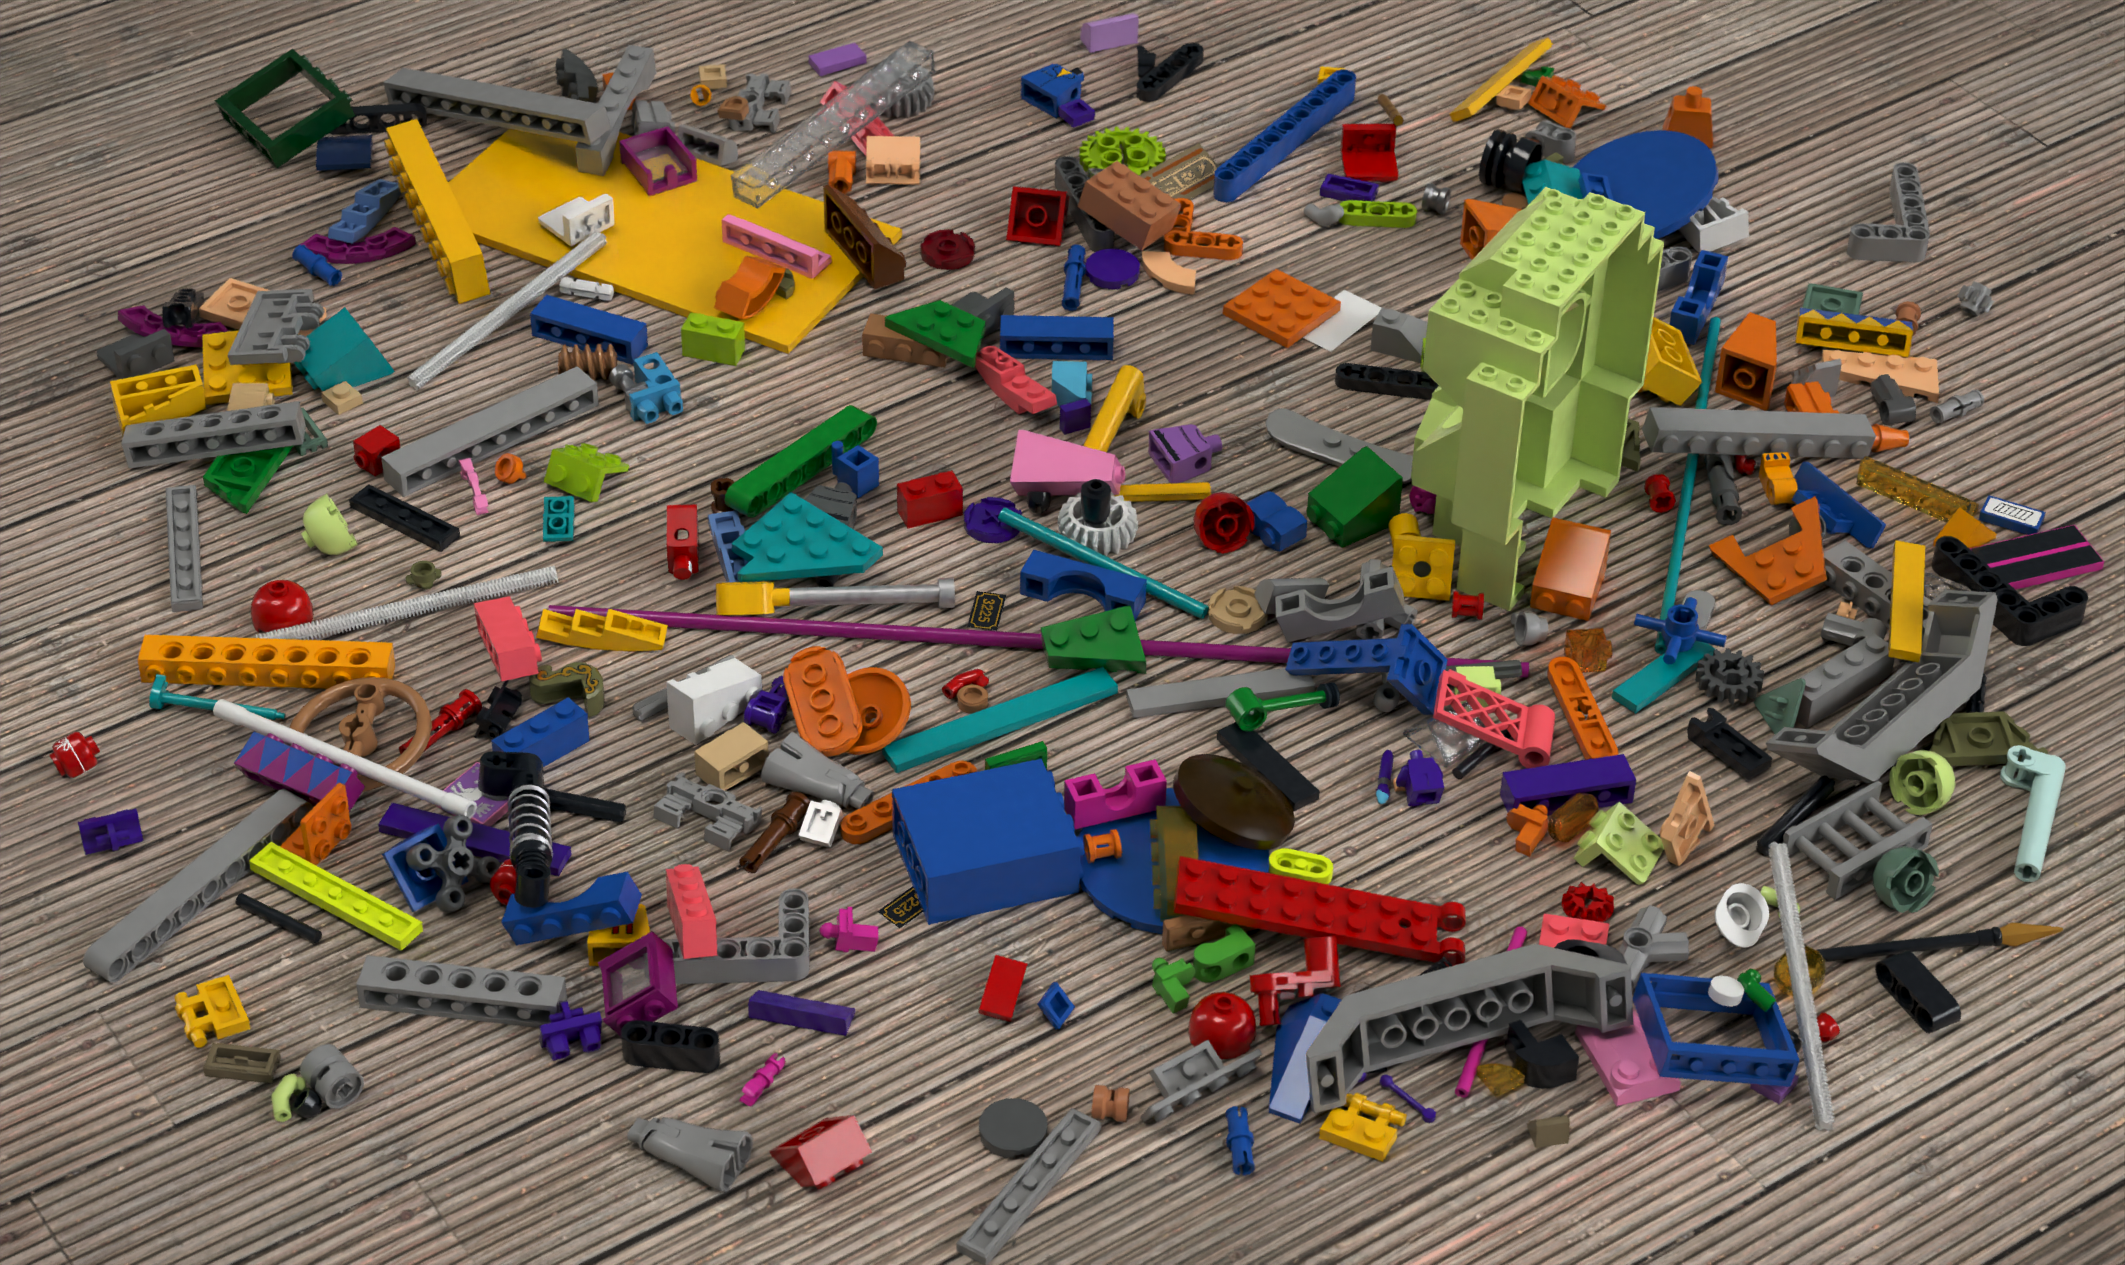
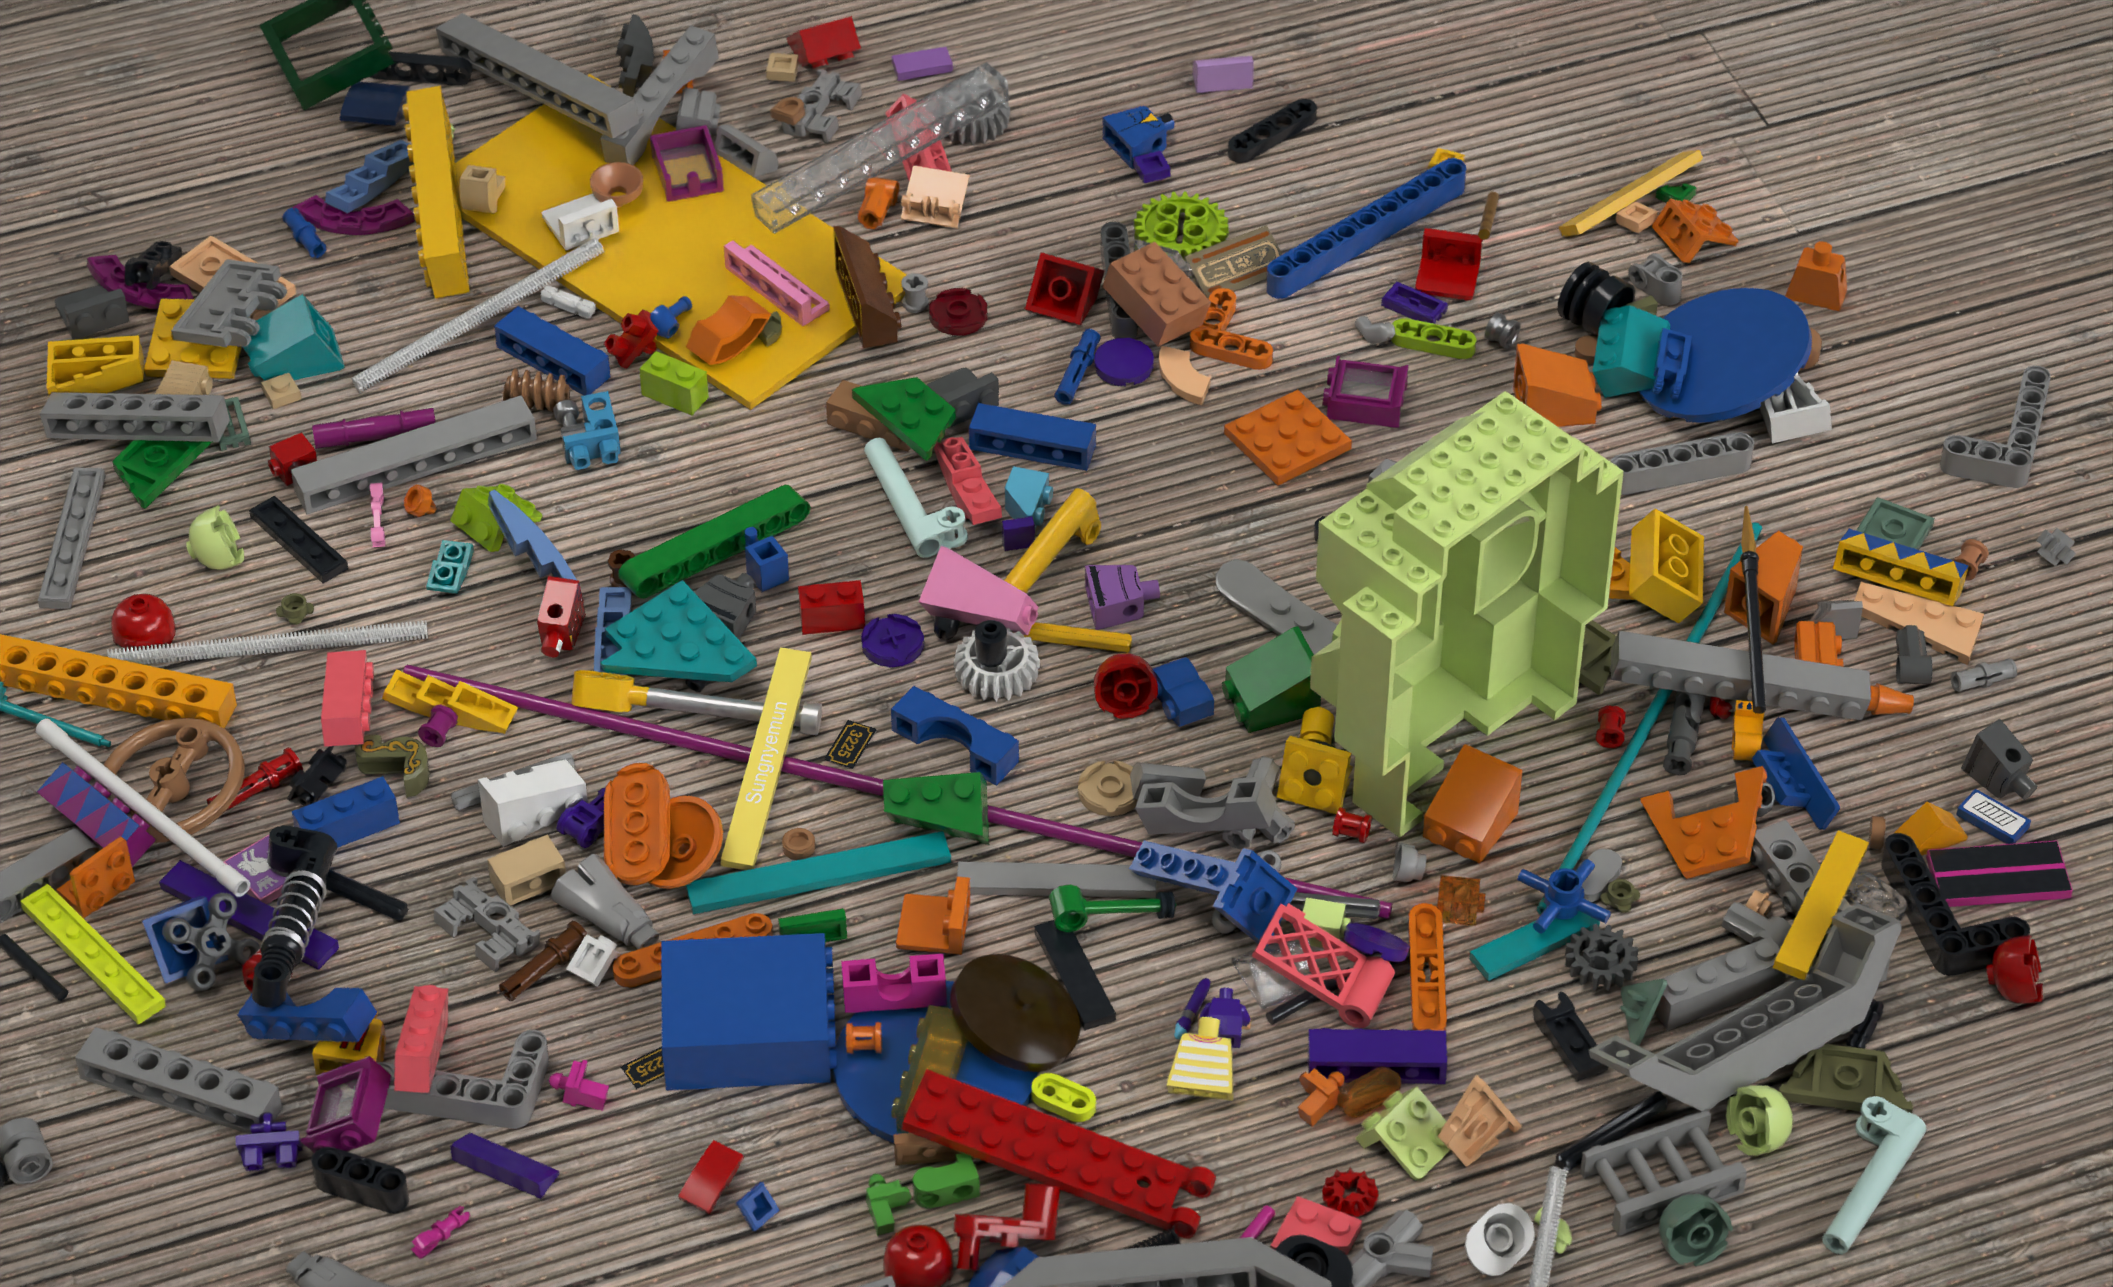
camera: 15 degrees right, 5 degrees up
(440, 415) = (370, 428): none -> magenta piece
(477, 203) = (480, 189): none -> tan brick
(600, 180) = (617, 178): none -> nougat piece
(600, 647) = (435, 730): none -> magenta bush
(628, 478) = (527, 537): none -> medium blue slope
(664, 308) = (635, 339): none -> red hips
(685, 288) = (665, 318): none -> blue bar
(705, 92) = (757, 90): light orange hinge -> none
(745, 51) = (825, 42): none -> red slope
(905, 234) = (915, 297): none -> light grey bush
(920, 630) = (766, 759): none -> light yellow tile
(974, 676) = (806, 820): red arm -> none
(992, 427) = (924, 531): none -> light aqua axle
(1094, 558) = (985, 710): teal piece -> none
(1126, 741) = (935, 921): none -> orange bracket
(1145, 61) = (1249, 114): black piece -> none
(1338, 262) = (1365, 392): none -> magenta window
(1353, 315) = (1366, 455): white sticker -> none
(1420, 817) = (1203, 1064): none -> light yellow torso
(1530, 694) = (1371, 939): none -> dark purple tile
(1704, 287) = (1761, 477): blue arch -> none
(1724, 623) = (1620, 895): none -> olive plate
(1739, 340) = (1750, 571): none -> black piece
(1911, 490) = (1894, 768): clear yellow fence -> none
(1922, 536) = (1877, 832): none -> medium nougat tile
(2003, 469) = (1999, 762): none -> dark grey torso
(2088, 629) = (2017, 970): none -> red cylinder

